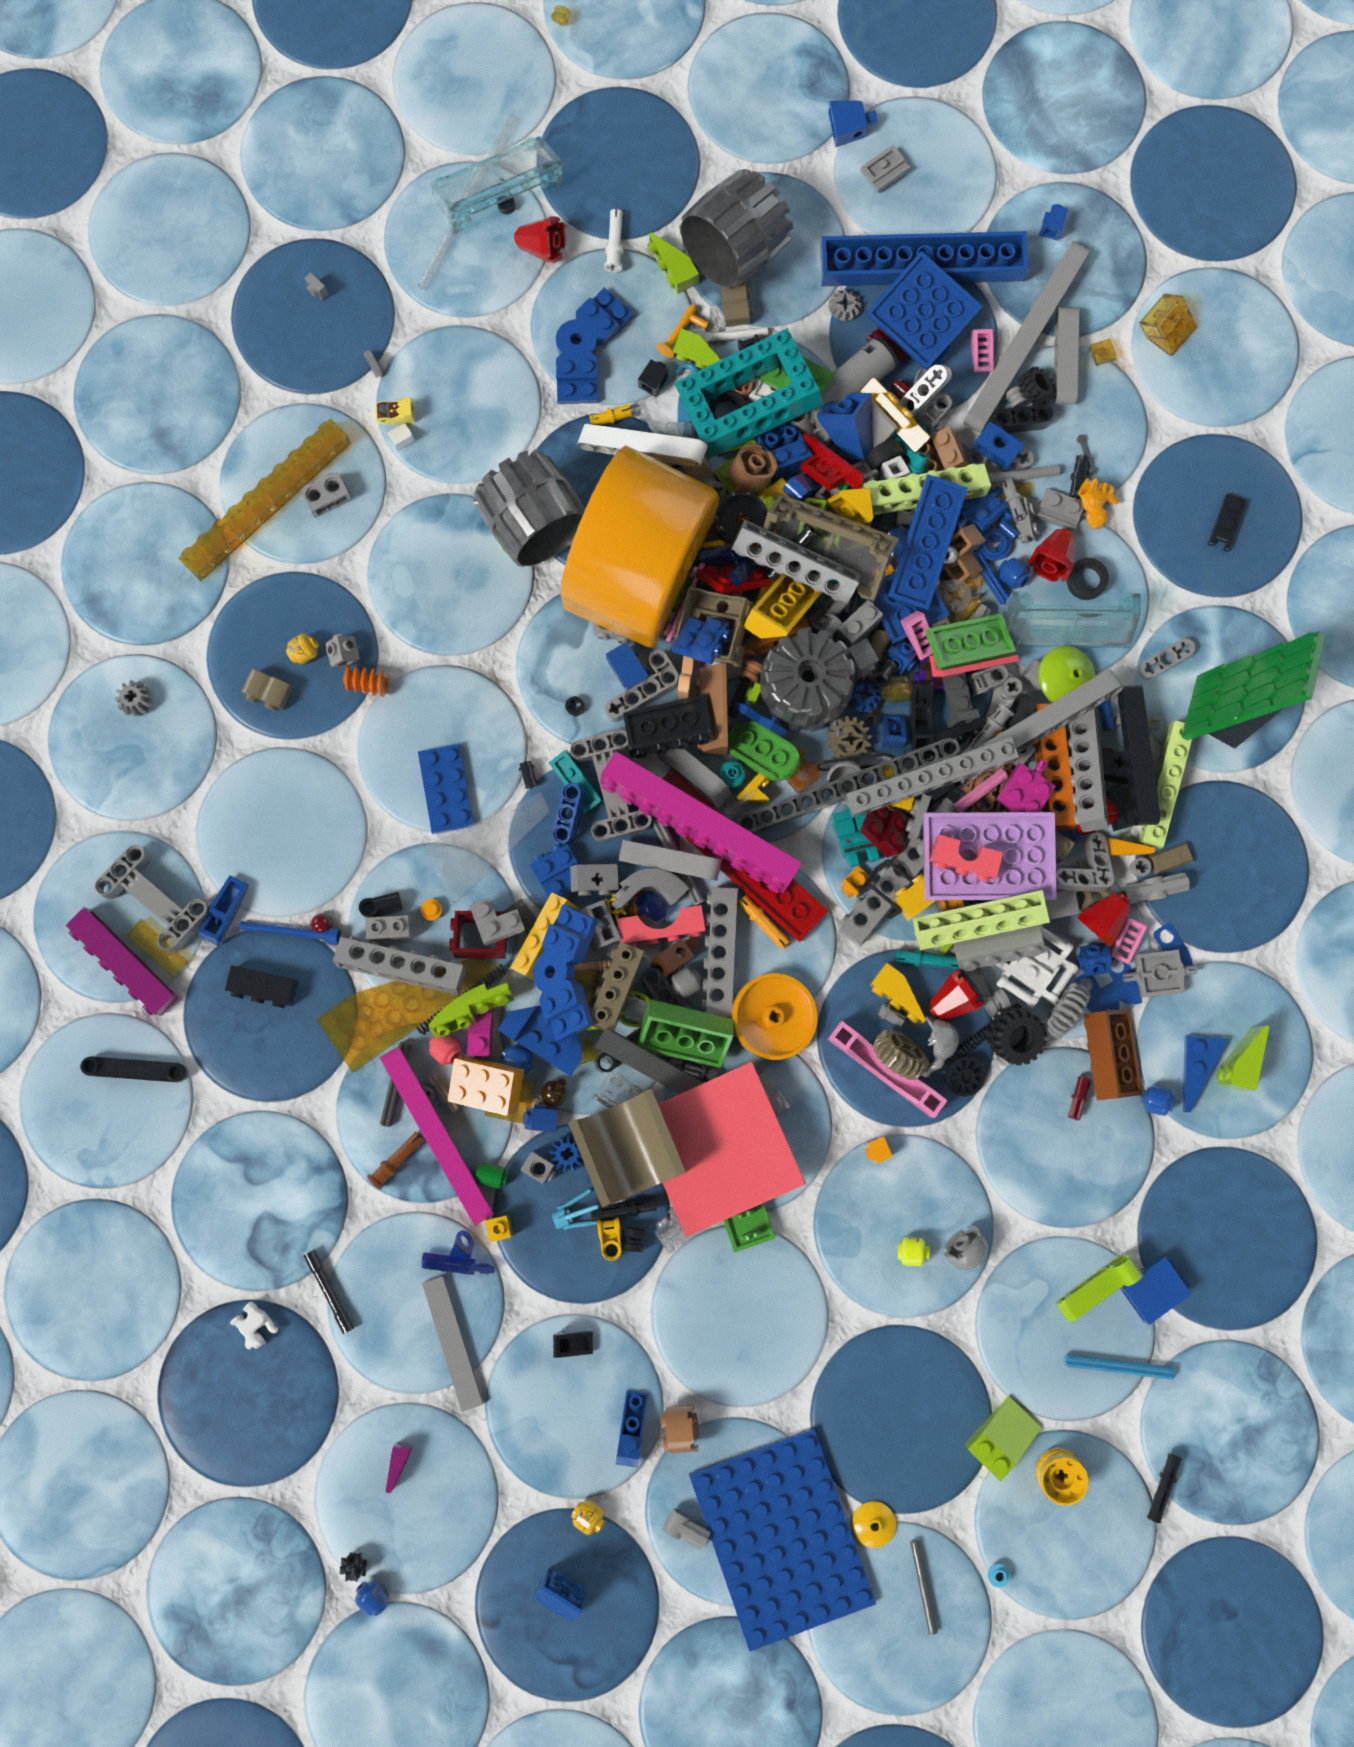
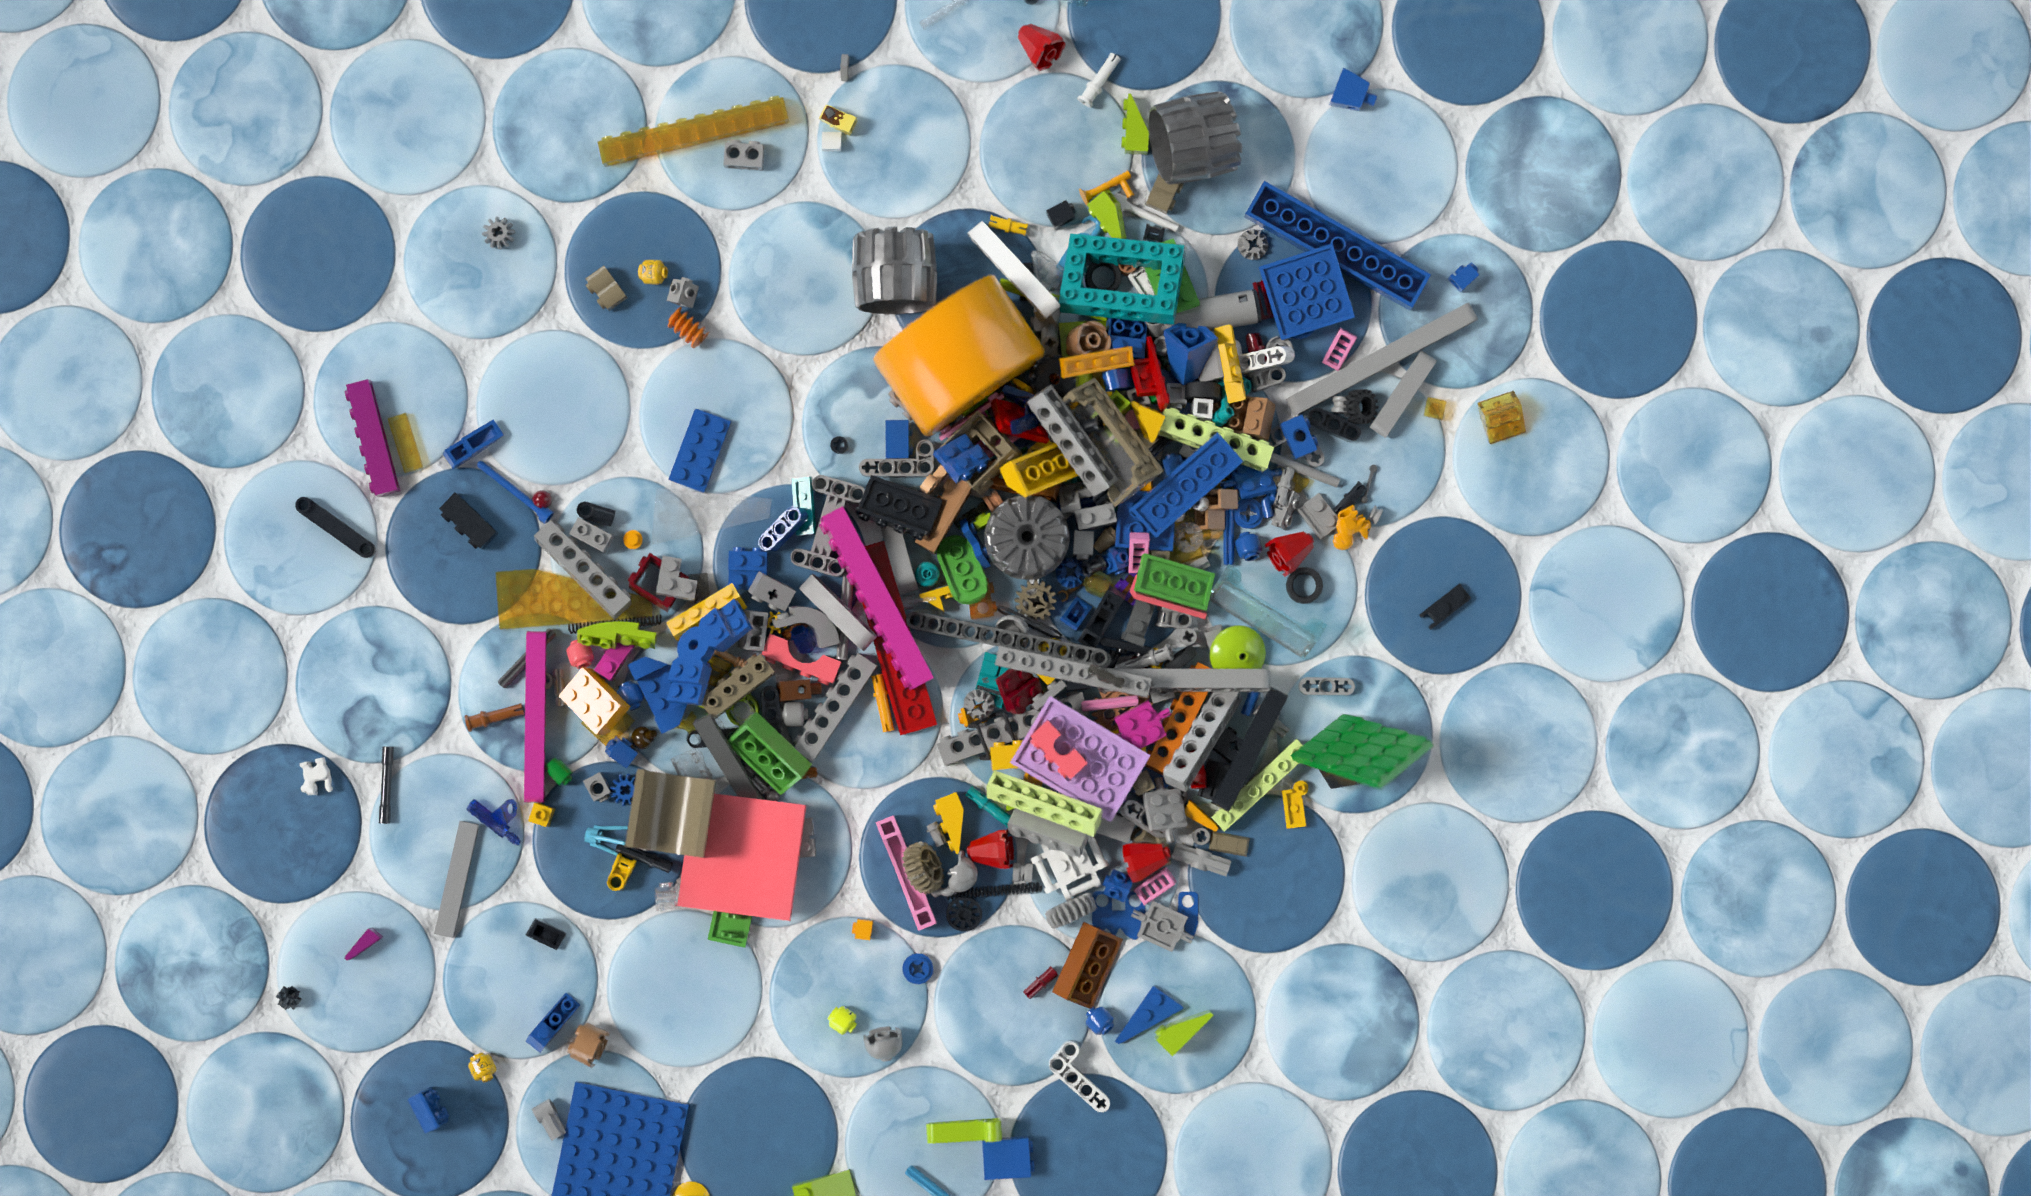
camera: 30 degrees right, 5 degrees up
(152, 898) = (424, 403): light grey beam -> none
(371, 1598) = (289, 1028): blue head -> none
(528, 774) = (770, 478): black pin -> none
(577, 365) = (1005, 168): blue plate -> none
(632, 1244) = (634, 887): black wheel -> none
(772, 478) = (1096, 361): none -> light orange tile
(793, 1016) = (863, 782): light orange dish -> none
(854, 857) = (979, 696): none -> light grey gear
(885, 168) = (1356, 149): light grey plate -> none
(959, 1165) = (918, 978): none -> blue gear
(968, 759) = (1106, 676): none -> clear smoke axle
(1029, 1045) = (1020, 921): black tyre -> none
(1095, 860) = (1164, 810): none -> light grey plate
(1111, 476) = (1375, 514): none -> light grey bush
(1177, 1169) = (1081, 1079): none -> white beam
(1208, 785) = (1294, 805): none -> yellow hinge

